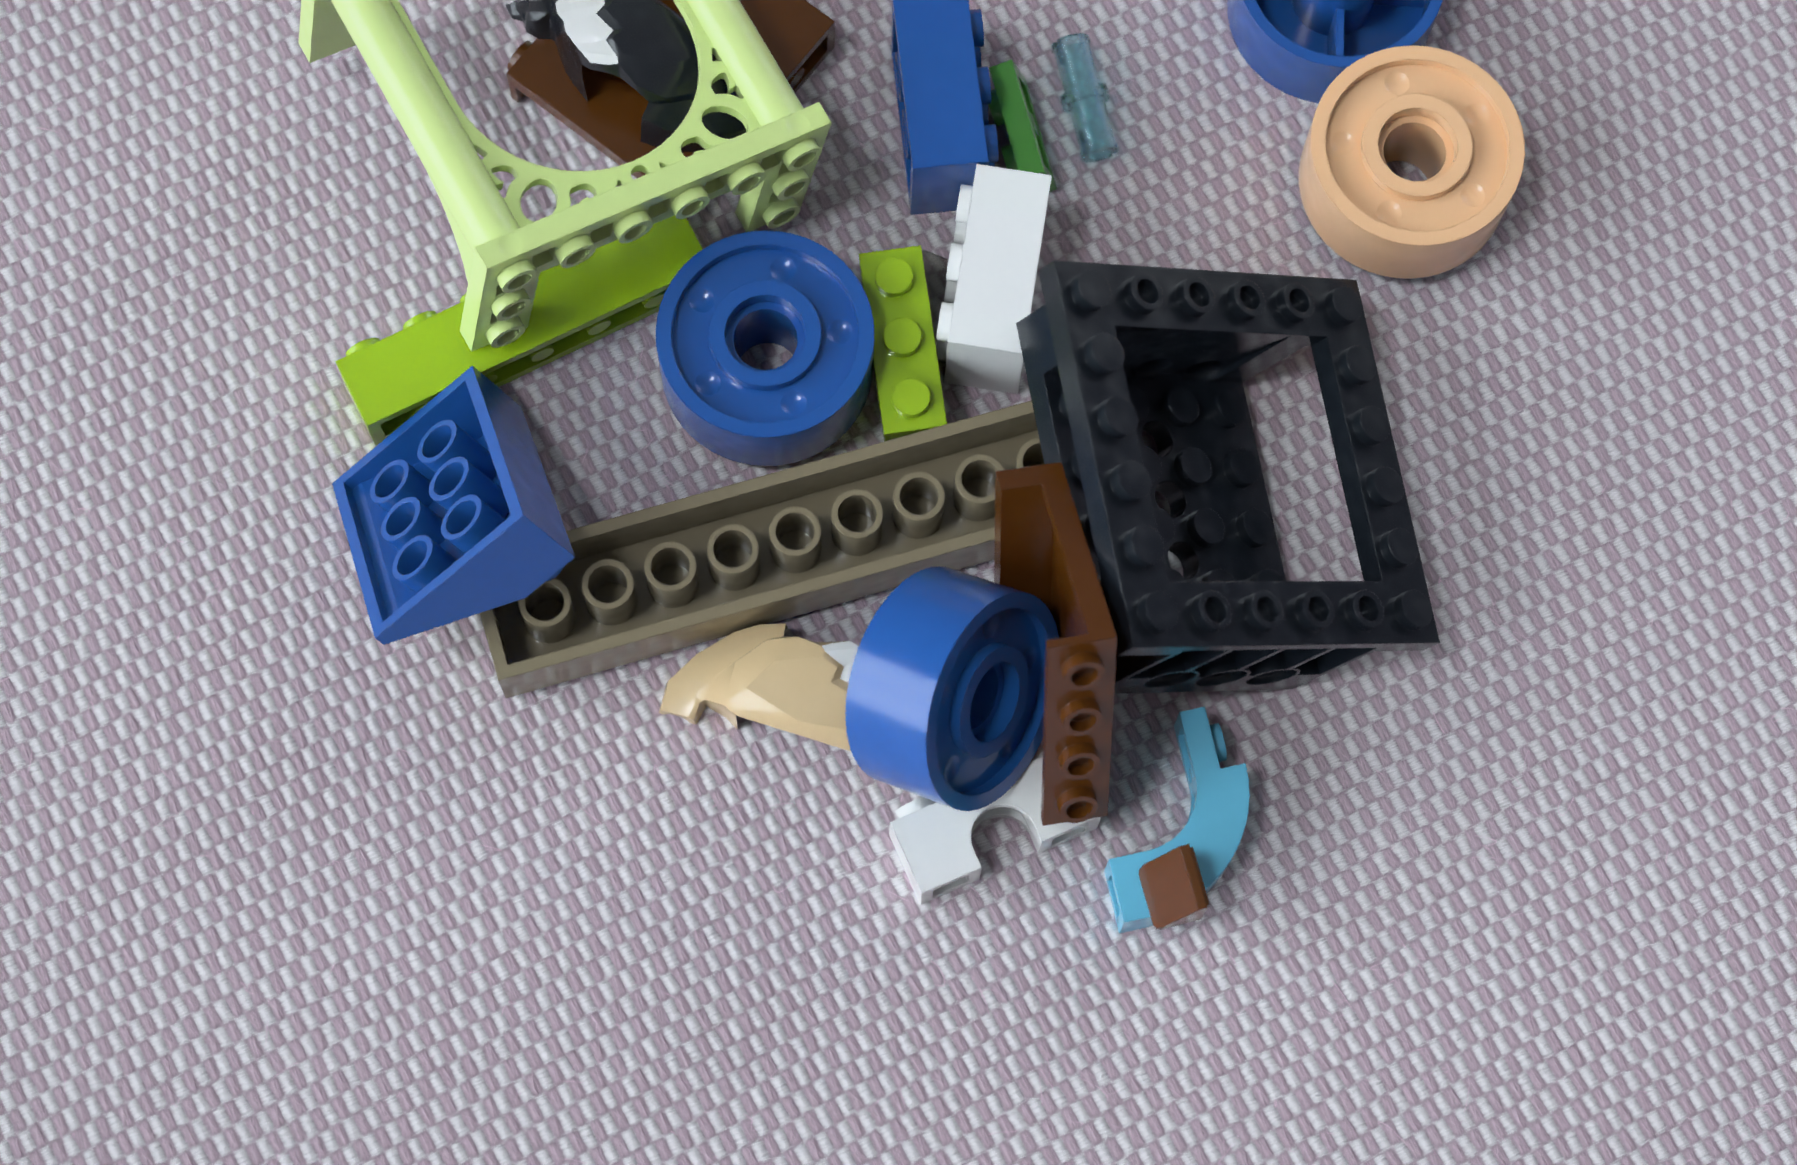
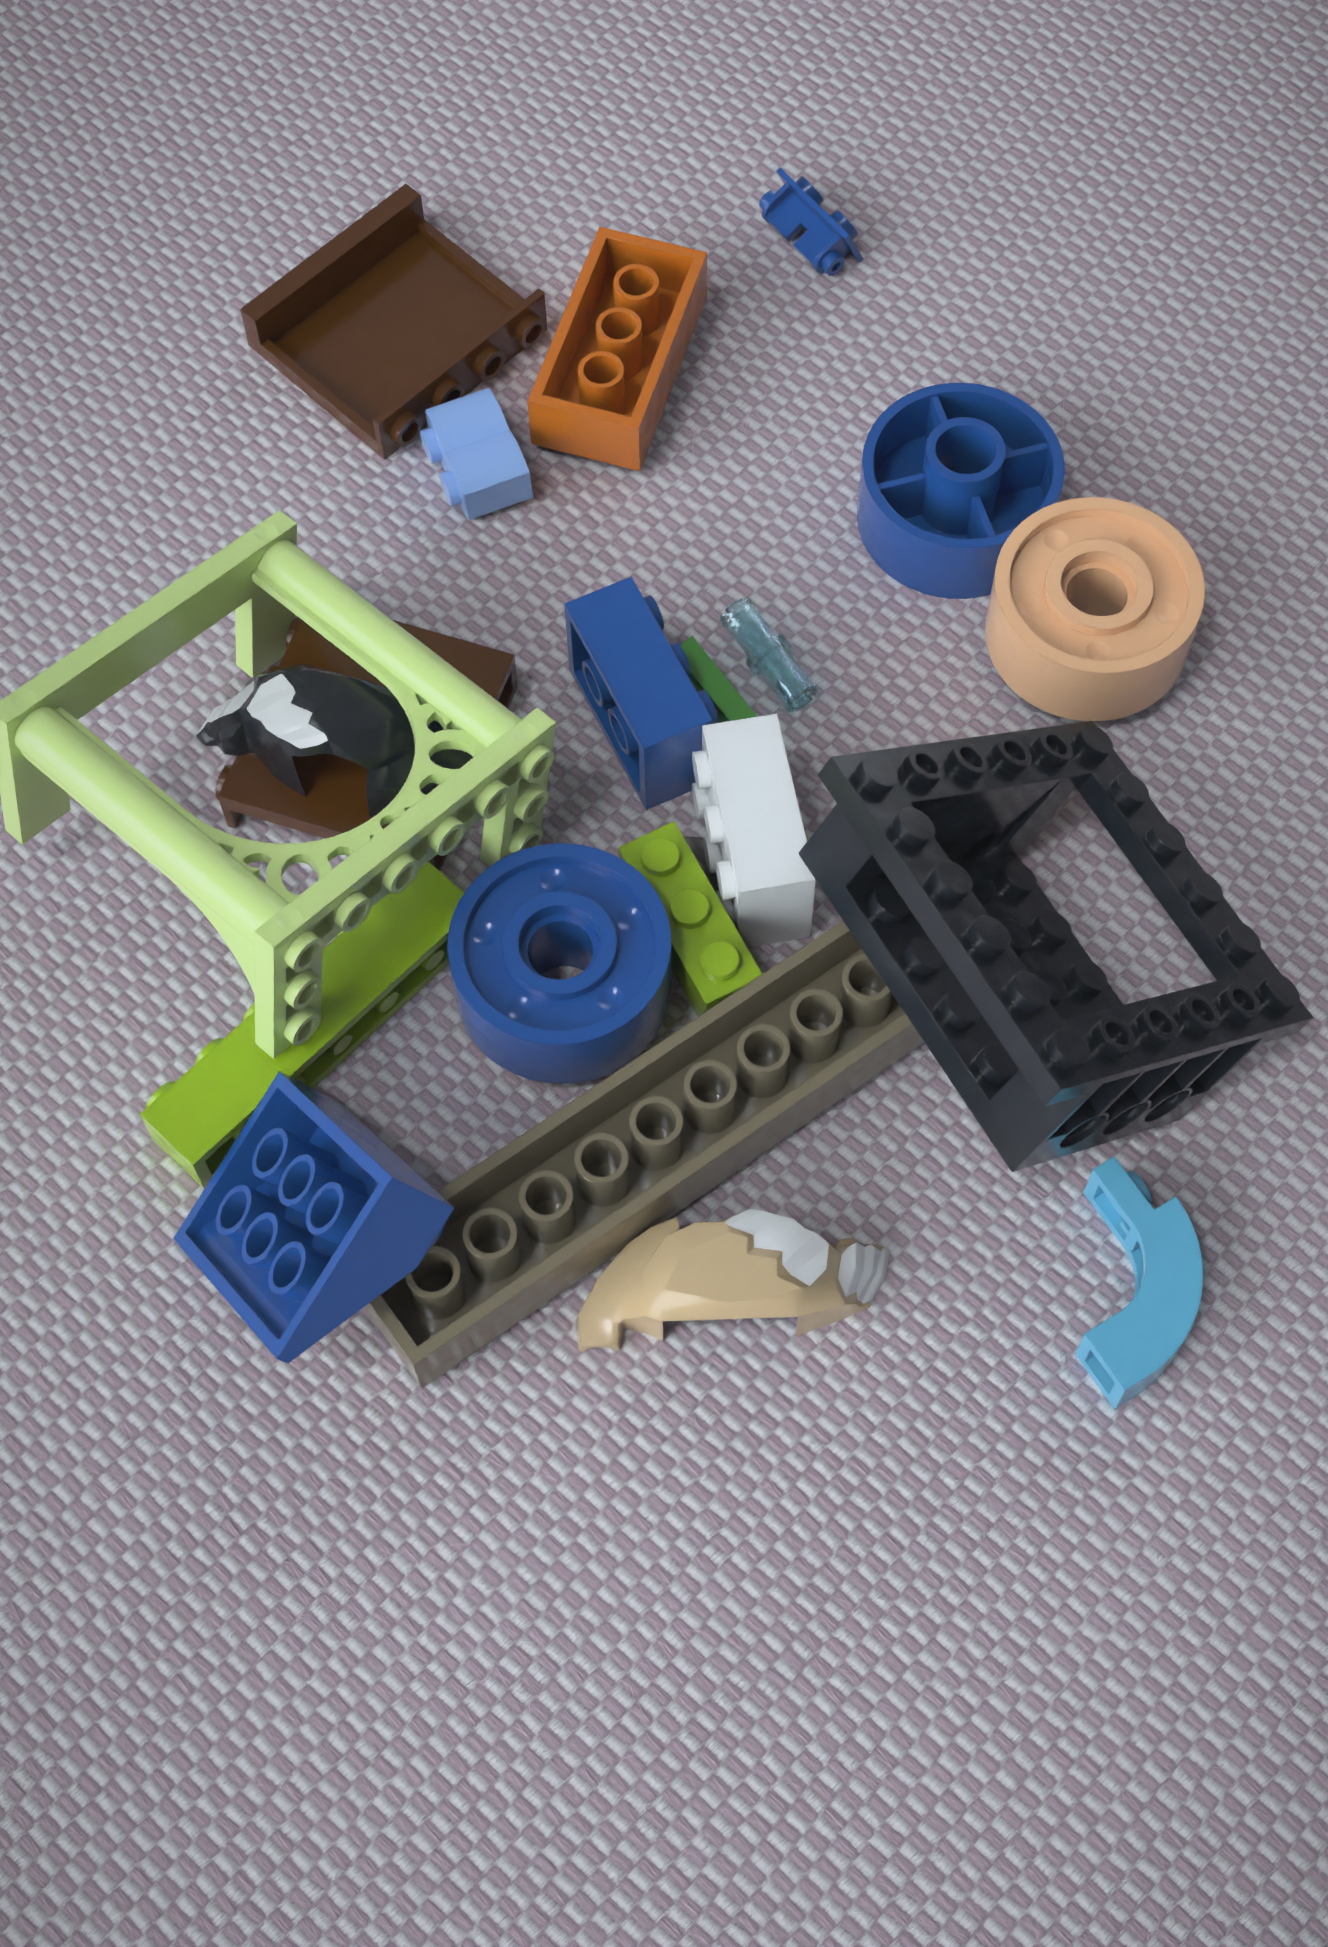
camera: 15 degrees left, 10 degrees down
(937, 838) = (990, 1298): white arch -> none
(950, 688) = (875, 1212): blue piece -> none
(1047, 555) = (968, 1114): reddish brown panel -> none
(1174, 888) = (1164, 1336): reddish brown slope -> none

